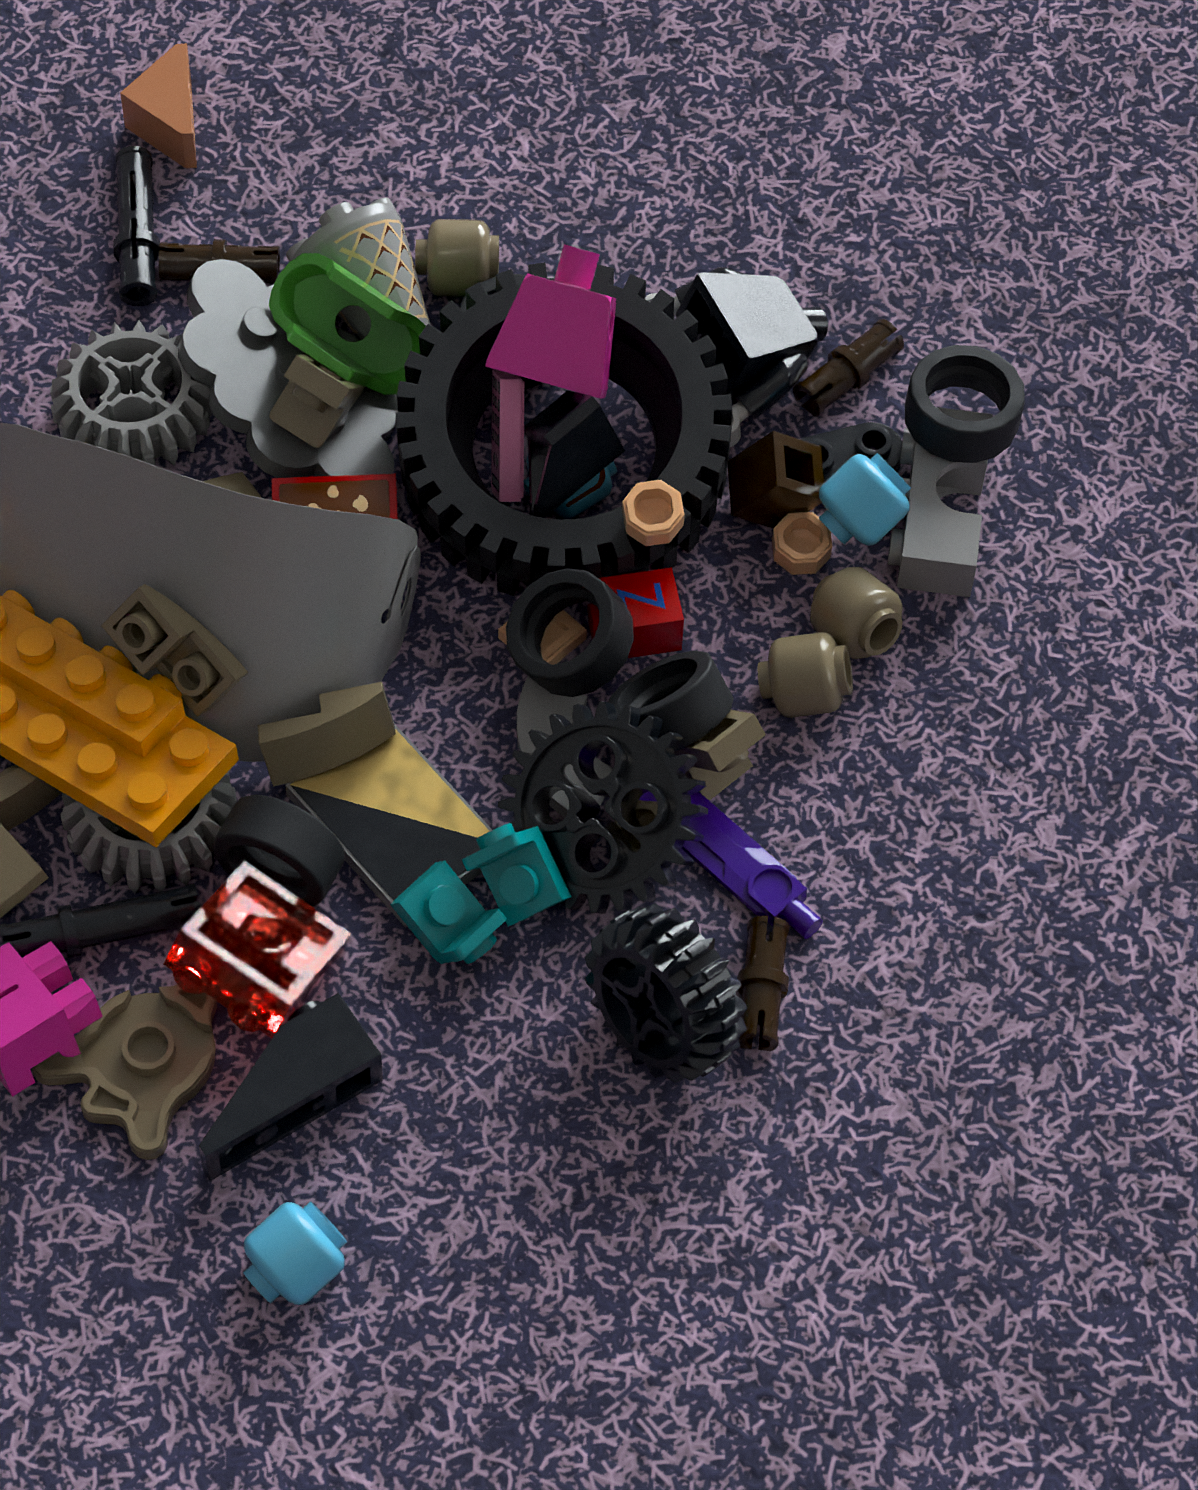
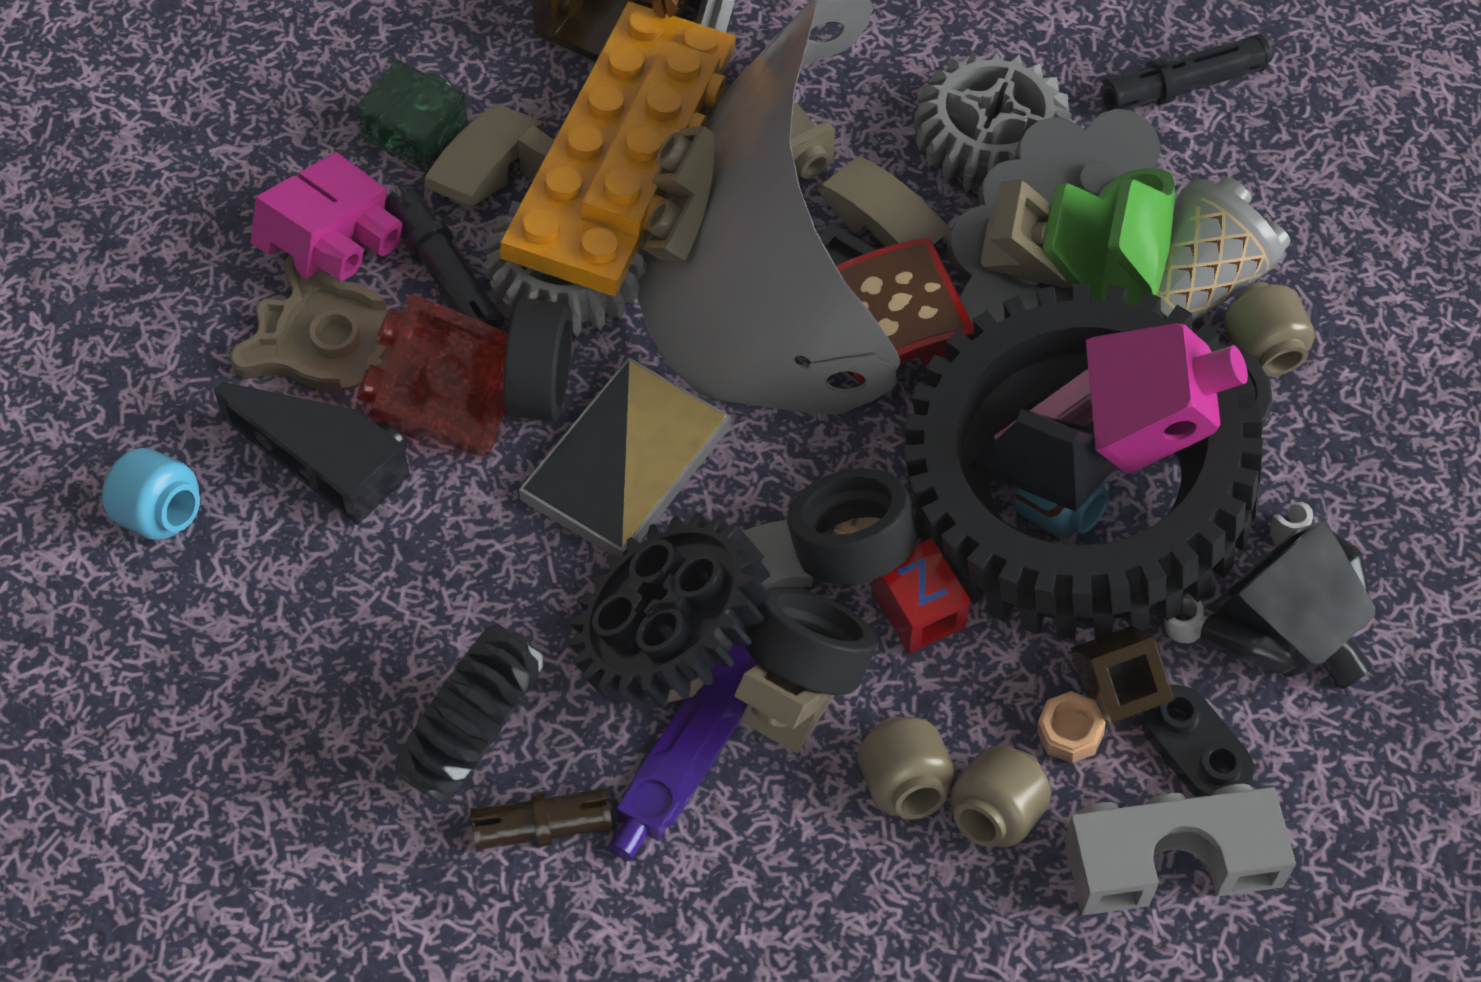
camera: 75 degrees right, 0 degrees up
(161, 106) = (1333, 54): nougat slope -> none
(181, 260) = (1177, 143): dark brown pin -> none
(347, 727) = (678, 368): dark tan slope -> none
(447, 916) = (526, 521): teal bracket -> none
(518, 872) = (587, 564): teal bracket -> none
(653, 512) = (990, 541): light nougat tile -> none
(848, 367) = (1314, 719): dark brown pin -> none
(864, 499) = (1122, 756): medium azure head -> none
(972, 369) = (1305, 780): black tyre -> none

